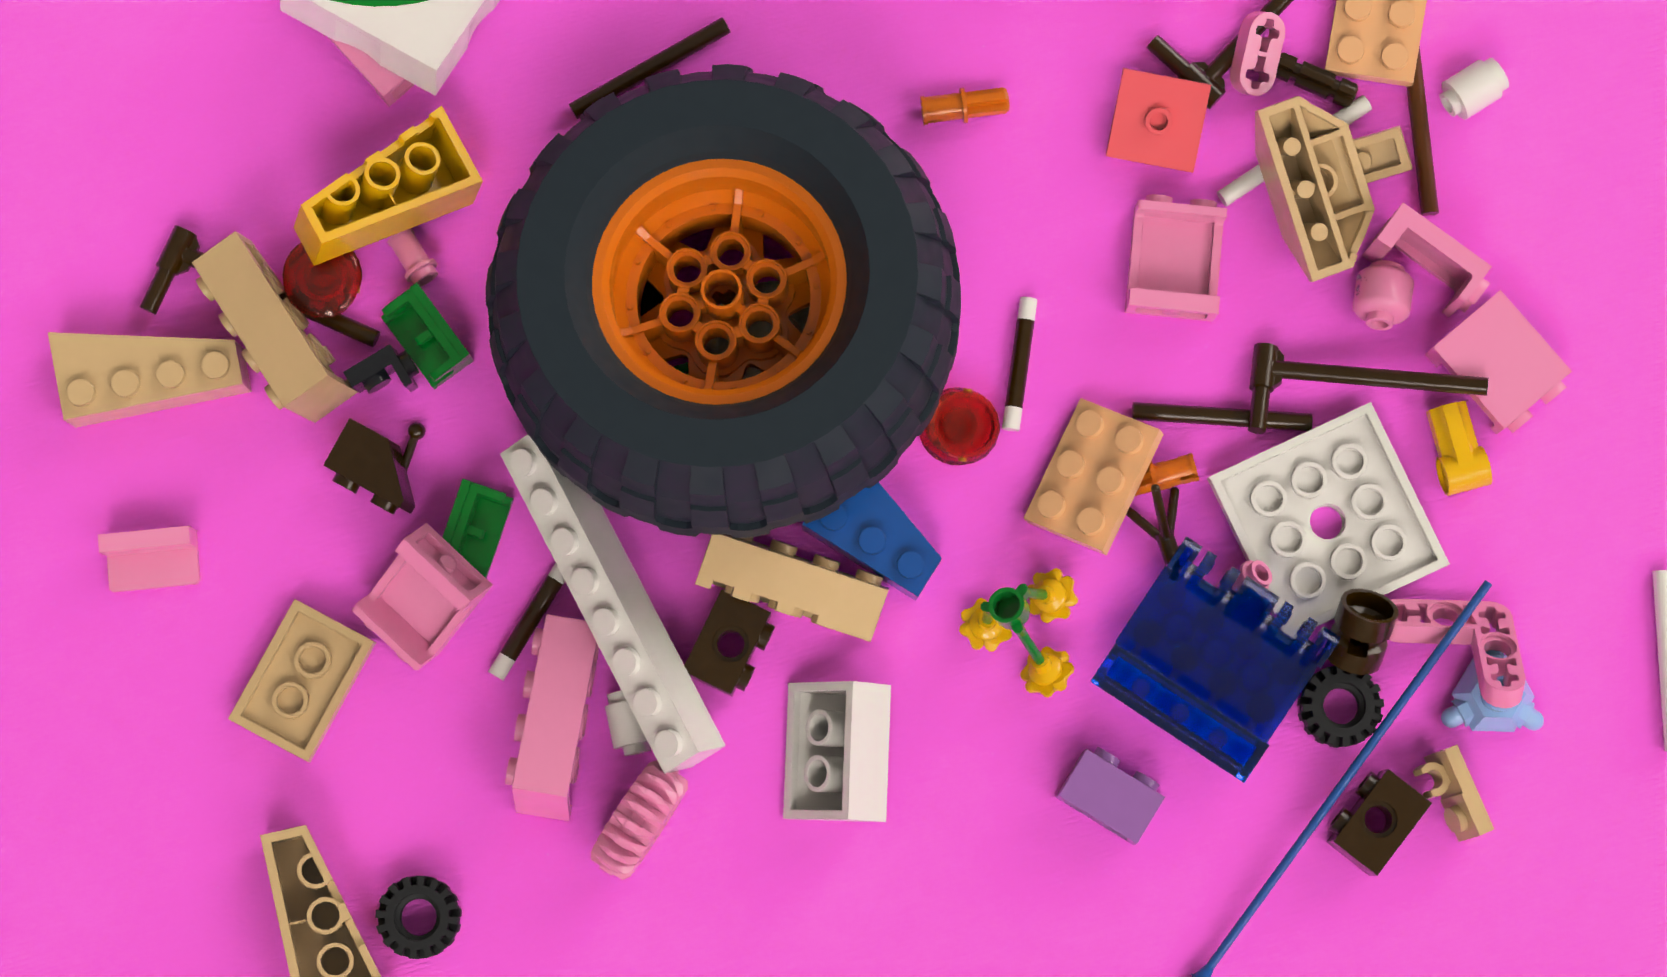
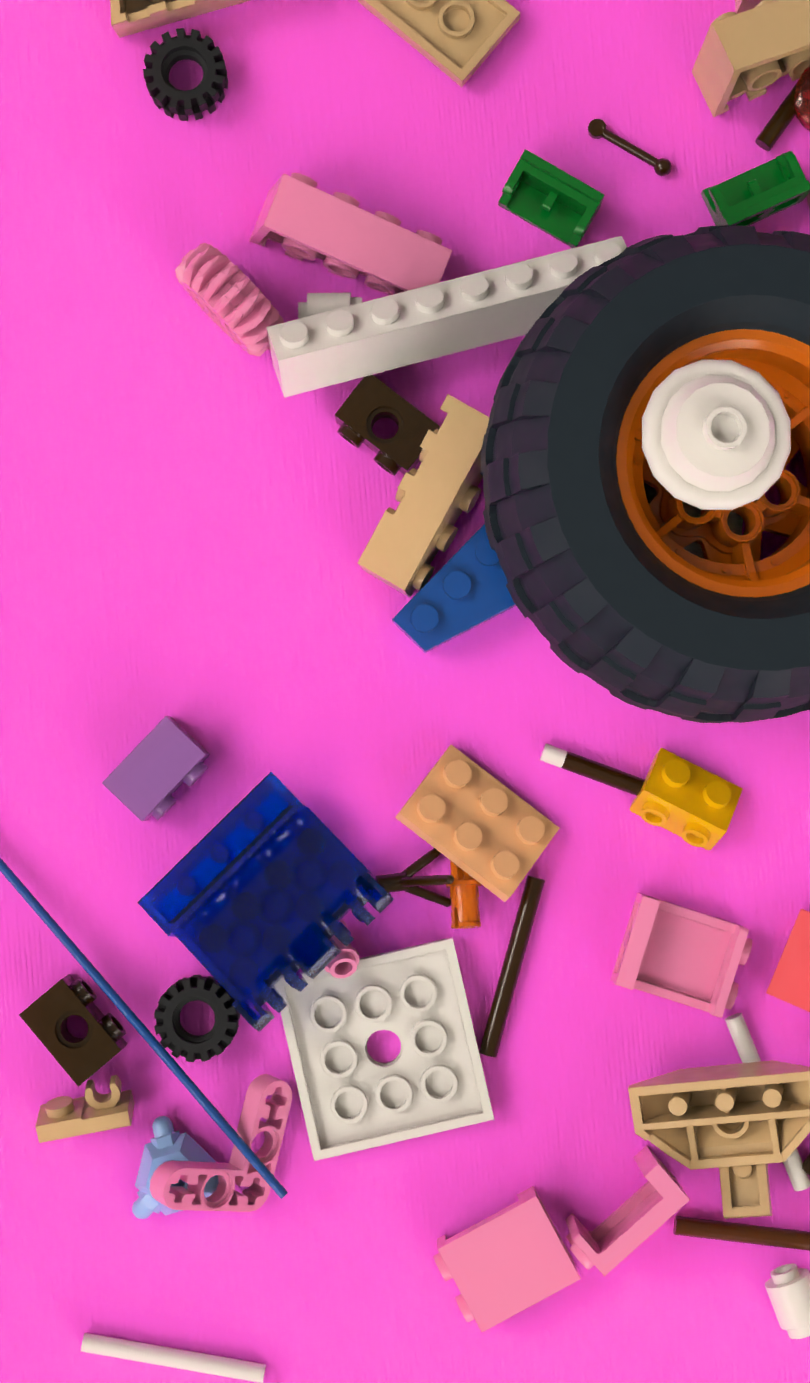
camera: 105 degrees right, 5 degrees up
(373, 463) = (637, 114): dark brown slope -> none
(374, 371) = (731, 135): black bracket -> none
(422, 597) = (494, 132): bright pink panel -> none
(527, 623) = (443, 230): dark brown bar -> none
(707, 313) = (716, 434): none -> white piece
(837, 751) = (257, 511): white slope -> none
(961, 427) = (556, 702): clear red piece -> none
(1007, 610) = (354, 701): yellow plant -> none
(1027, 283) = (686, 800): none -> yellow bracket
(1270, 369) = (550, 1026): dark brown bar -> none
(1364, 626) = (265, 1058): dark brown wheel -> none
(1383, 294) = (601, 1157): bright pink head -> none
(1460, 460) = (416, 1196): yellow piece -> none

